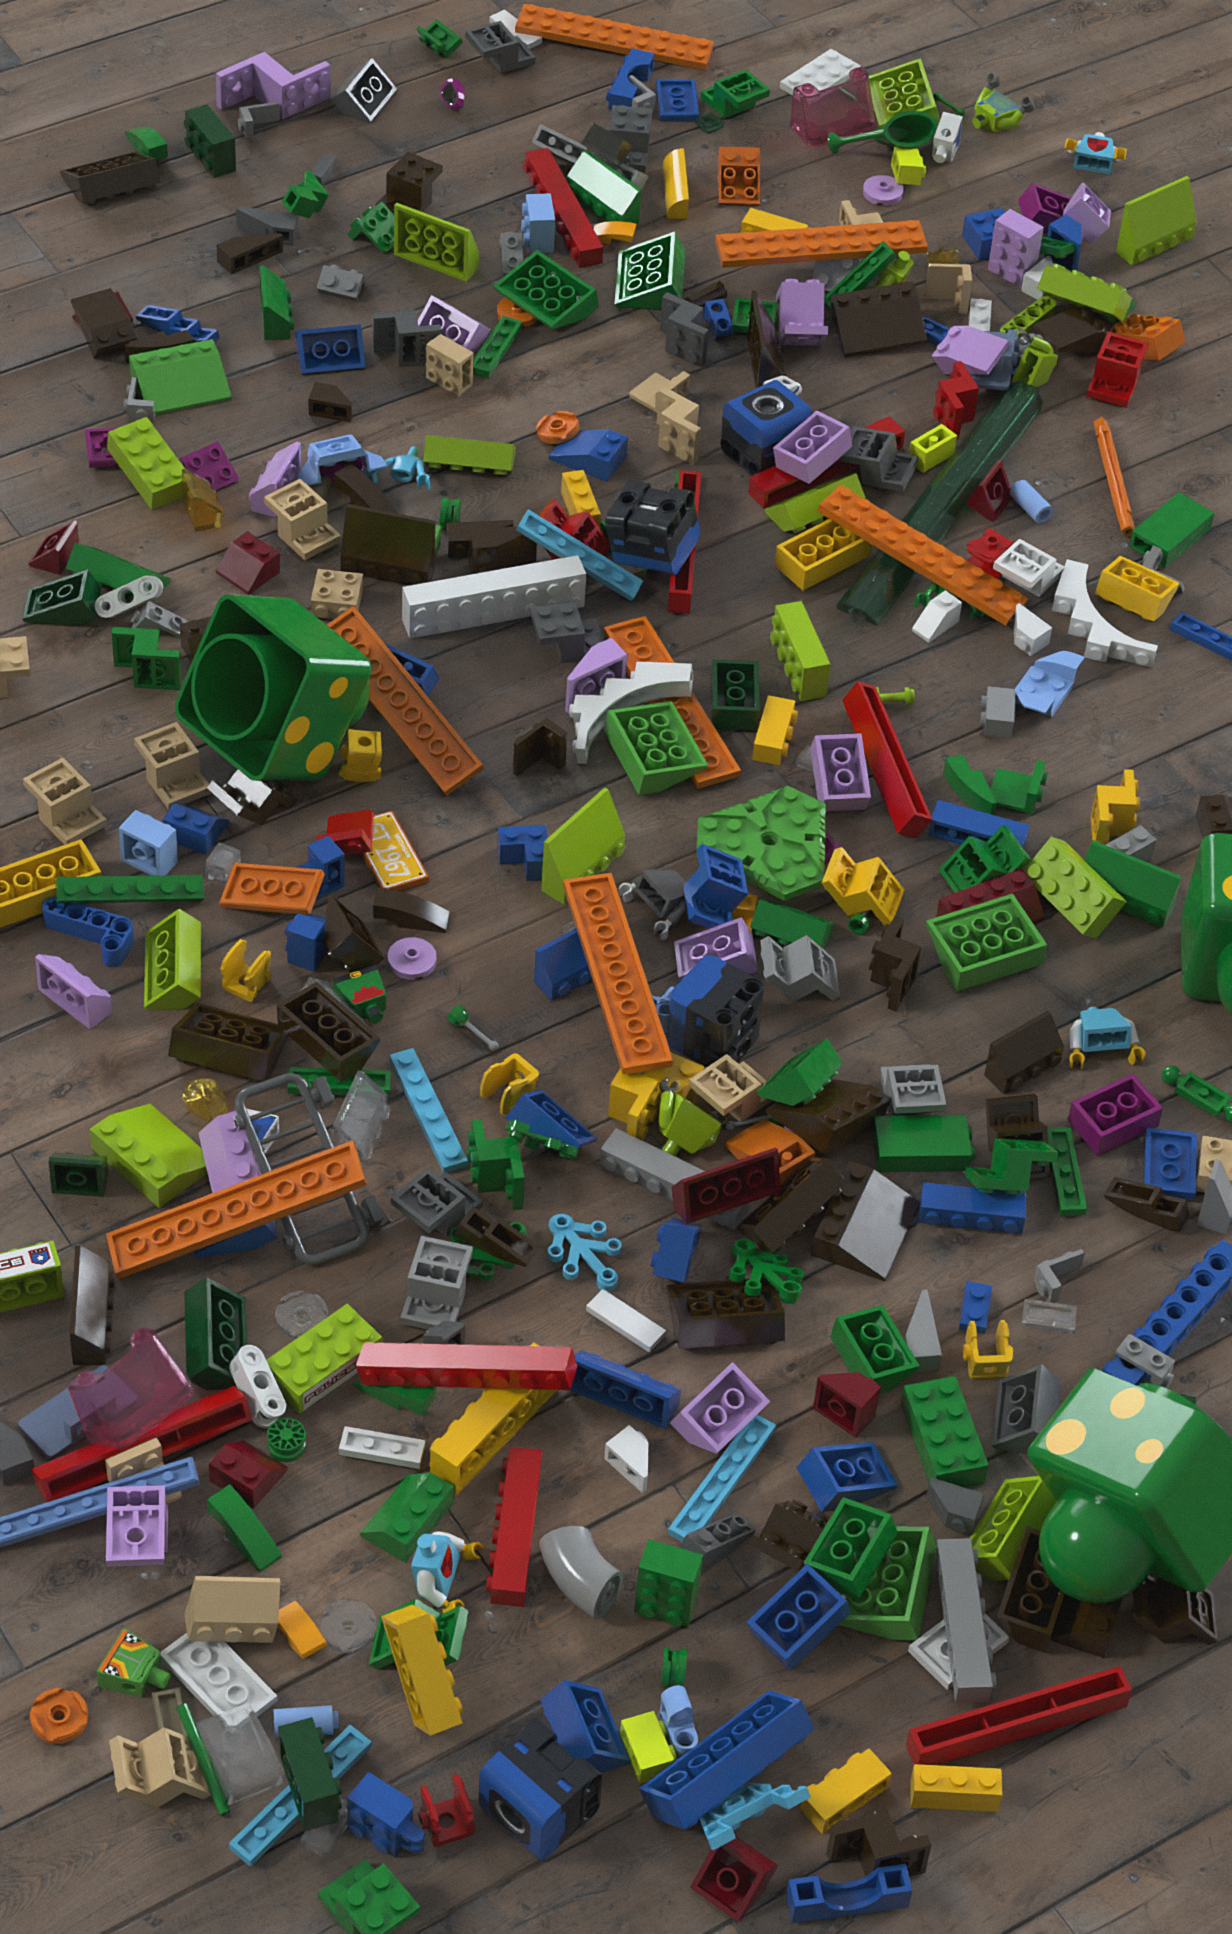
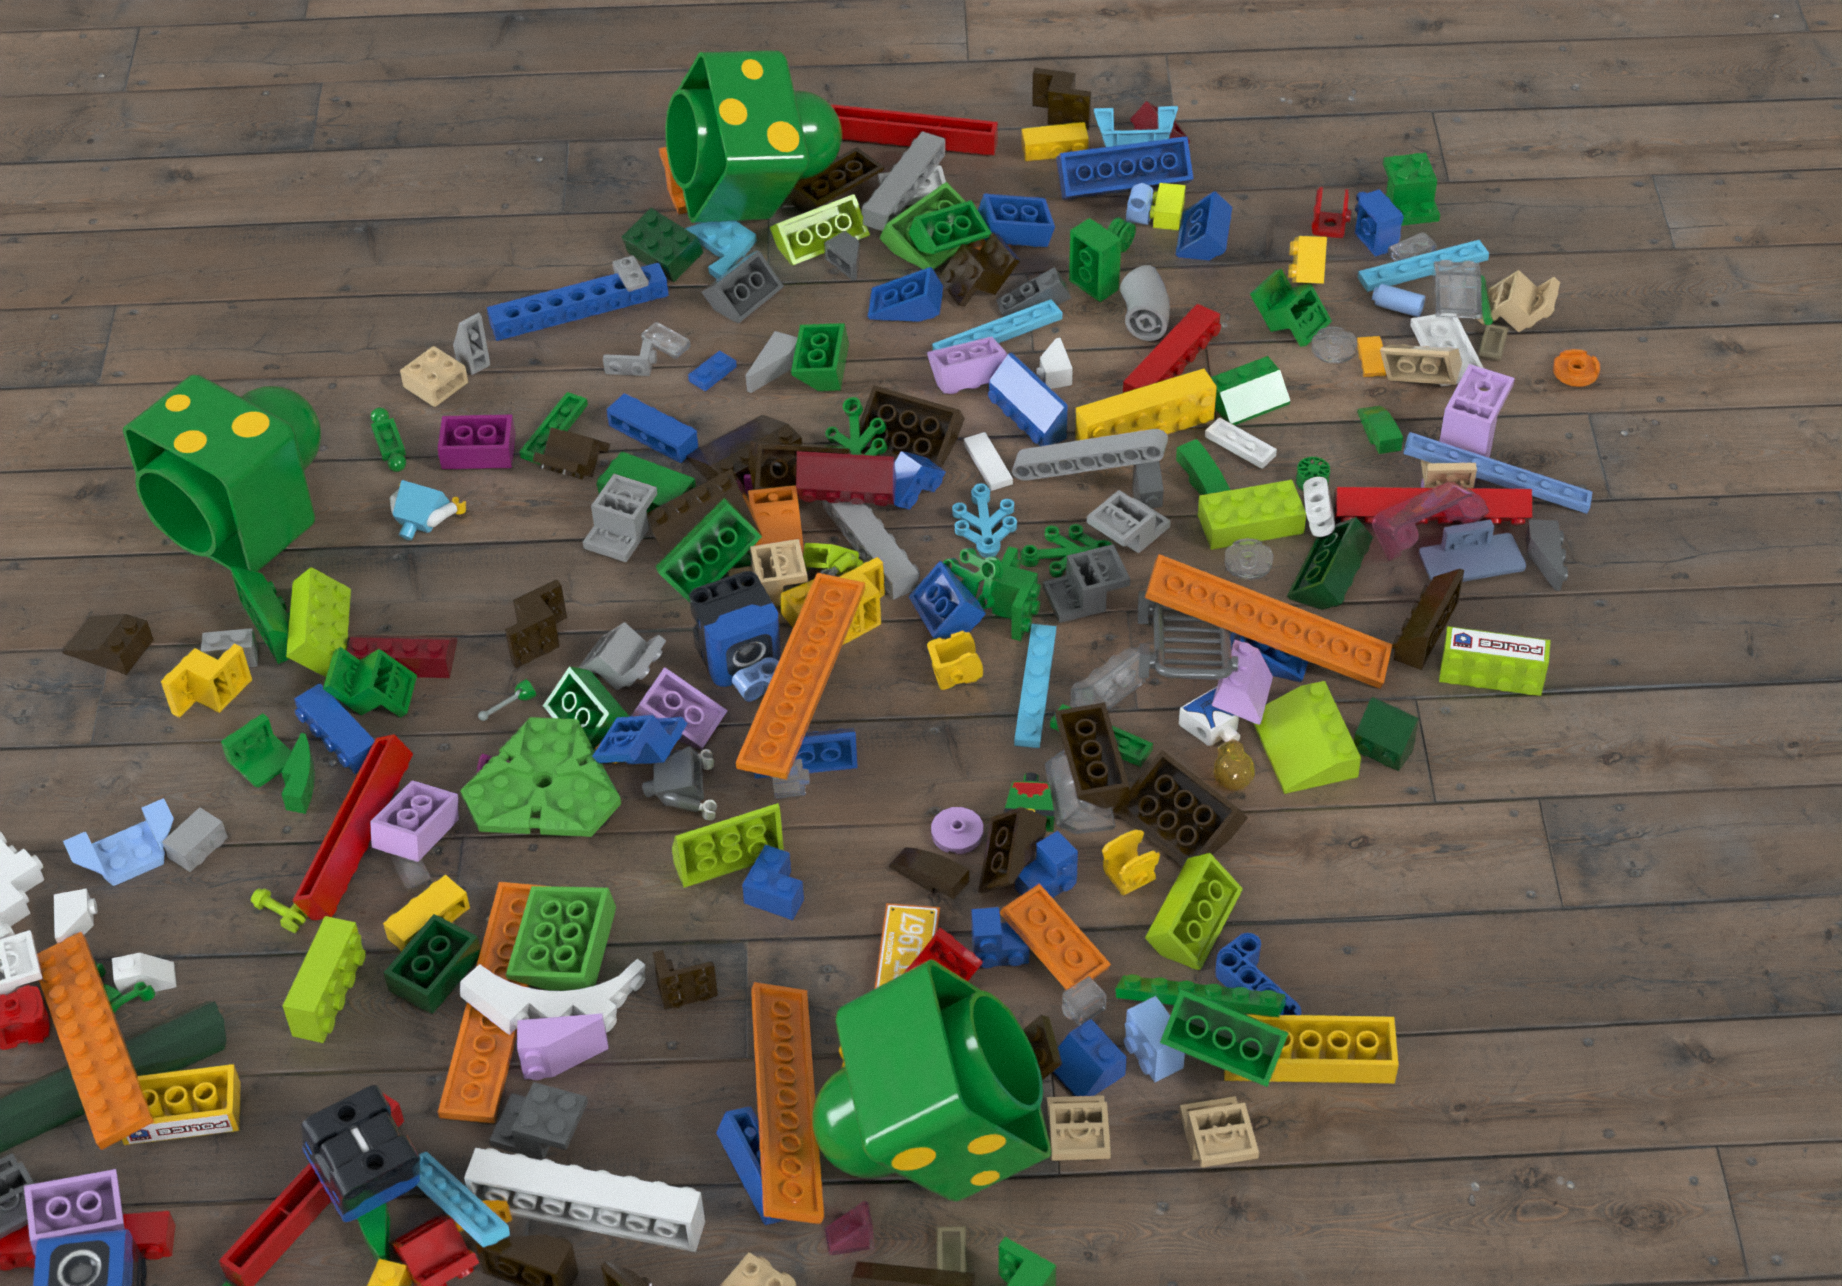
camera: 145 degrees left, 0 degrees up
(72, 990) = (1309, 914): lavender slope -> none
(87, 834) = (1224, 1037): none -> green slope
(131, 1666) = (1515, 366): bright green torso -> none
(246, 1470) = (1357, 462): dark red slope -> none
(309, 1773) = (1418, 245): dark green brick -> none
(436, 1566) = (1247, 347): torso -> none
(459, 1017) = (952, 750): hinge -> none
(467, 1366) = (1142, 413): brick -> none
(496, 1238) = (1054, 535): dark brown slope -> none
(513, 1320) = (1090, 454): none -> light grey beam
(539, 1789) = (1264, 188): piece -> none
(802, 508) = (144, 1181): lime slope -> none
(847, 1400) = (869, 328): dark red slope -> none
(863, 886) = (498, 708): yellow bracket -> none
(879, 1891) = (1121, 97): blue arch -> none
(944, 1432) = (815, 291): green brick -> none
(956, 1788) = (975, 108): yellow brick -> none
(977, 1364) = (729, 319): yellow piece -> none
(986, 942) = (440, 608): bright green slope -> none
(1011, 1165) = (604, 417): green bracket -> none
(1024, 1053) = (501, 517): dark brown slope -> none
(1148, 1203) = (514, 381): dark brown slope -> none
(1171, 1161) = (469, 397): blue plate -> none

